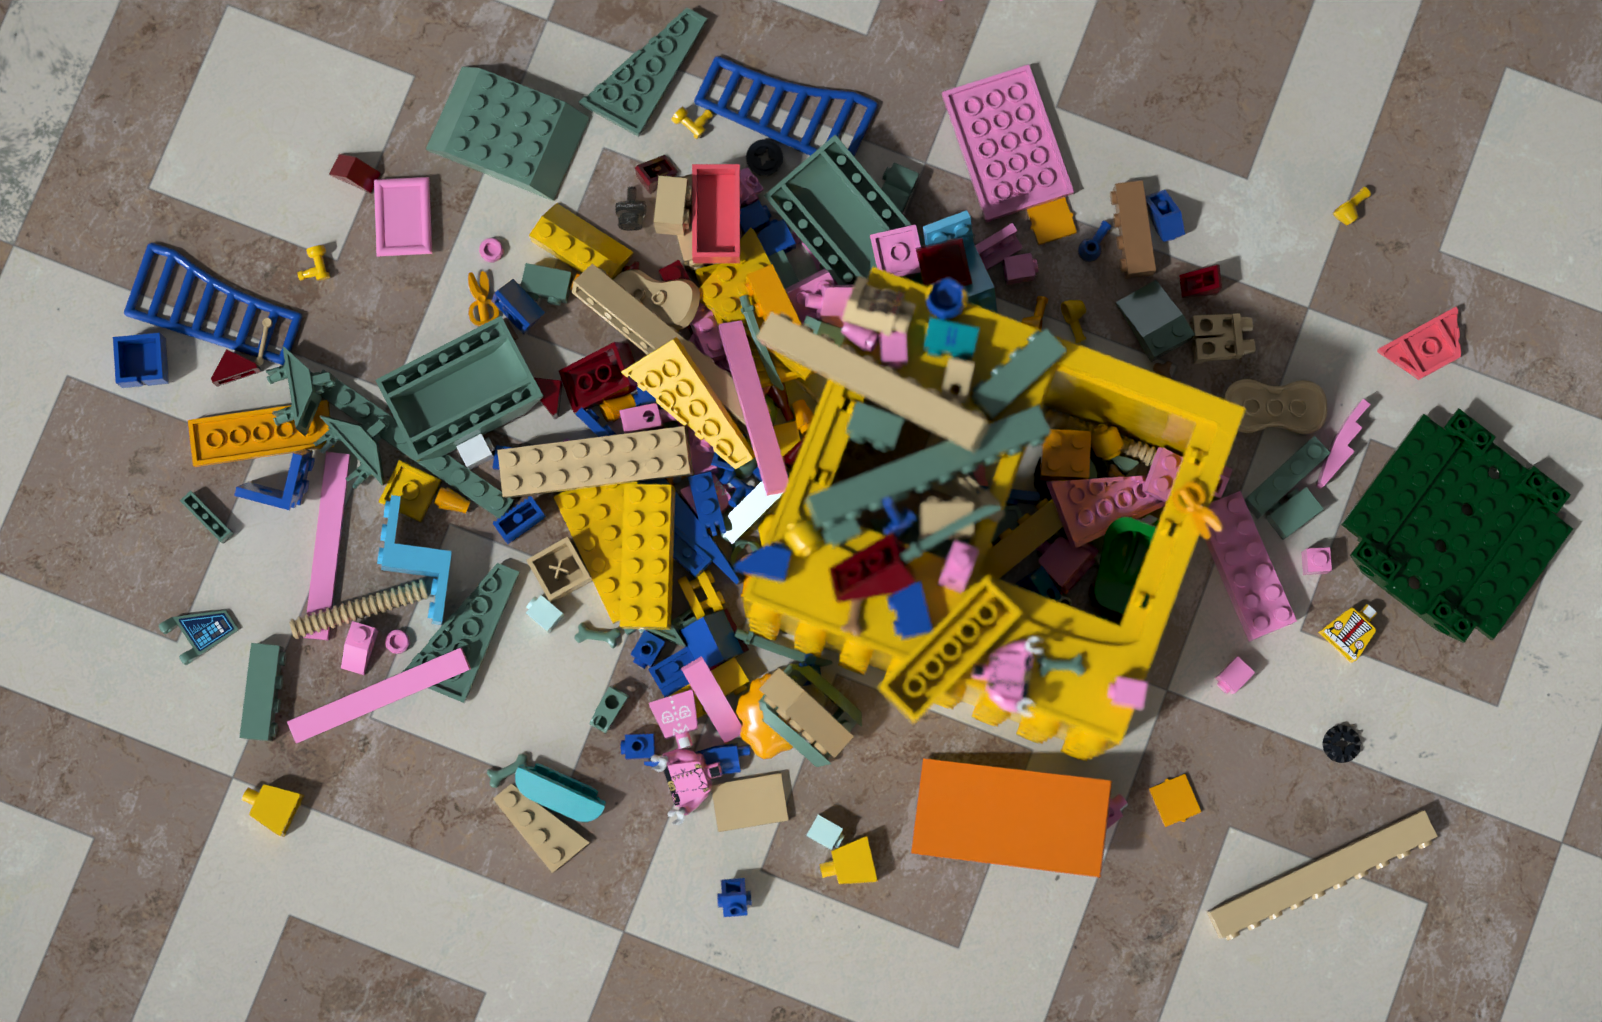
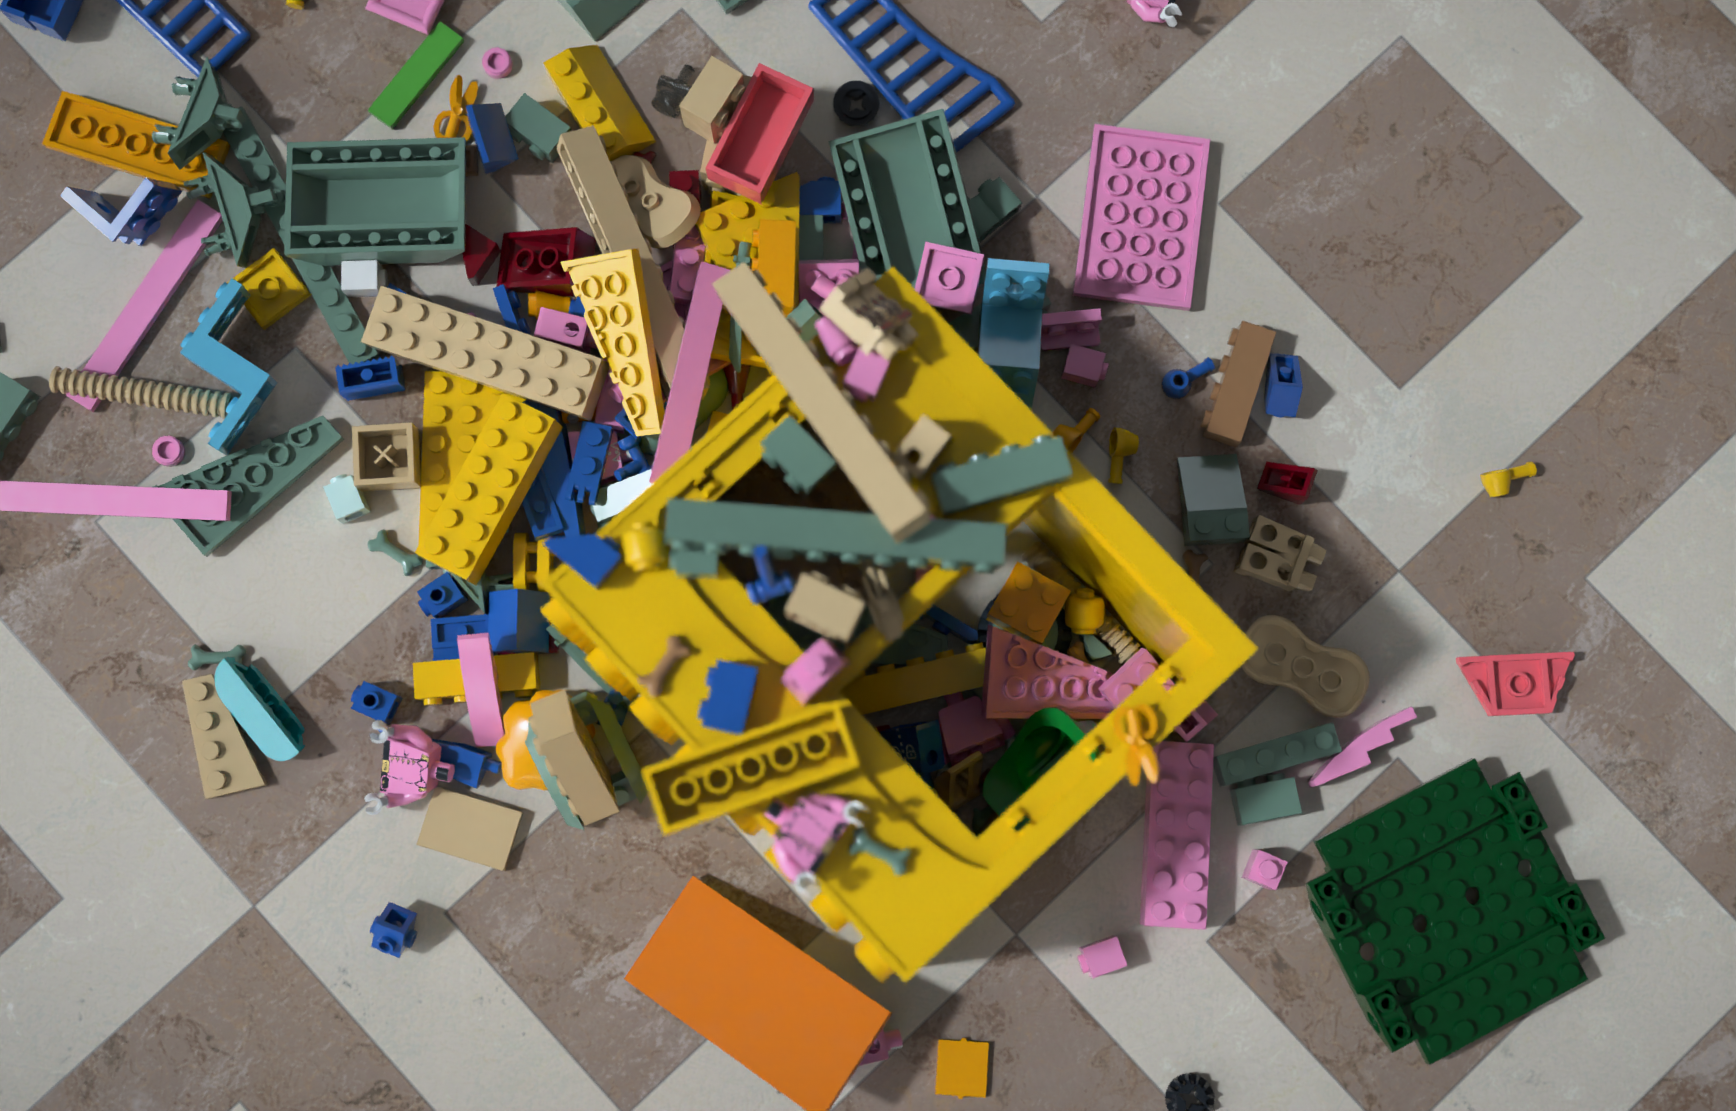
camera: 25 degrees right, 0 degrees up
(206, 517) = (29, 209): sand green piece -> none
(232, 368) = (141, 57): dark red slope -> none
(266, 323) = (205, 25): tan hinge -> none
(358, 647) = (120, 435): bright pink slope -> none
(437, 287) = (416, 75): none -> bright green tile
(450, 500) = (306, 319): light orange cone -> none
(608, 709) = (364, 642): sand green leg -> none
(651, 170) = (731, 55): dark red slope -> none
(677, 717) = (429, 689): bright pink torso -> none
(696, 126) = (784, 13): yellow piece -> none
(749, 187) = (817, 127): bright pink brick -> none
(754, 217) = (808, 163): blue brick -> none
(825, 833) = (537, 906): light aqua brick -> none
(851, 863) = (549, 957): yellow torso -> none
(872, 571) = (707, 628): dark red slope -> none
(916, 549) = (800, 623): sand green sword -> none
(944, 261) = (992, 316): dark red tile -> none
(946, 298) = (958, 344): blue hair -> none
(950, 339) = (940, 396): teal brick -> none
(1051, 221) = (1149, 330): light orange piece -> none
(1078, 596) = (960, 782): none -> tan slope
(1127, 693) = (942, 925): bright pink brick -> none
(1350, 632) = (1264, 972): torso -> none

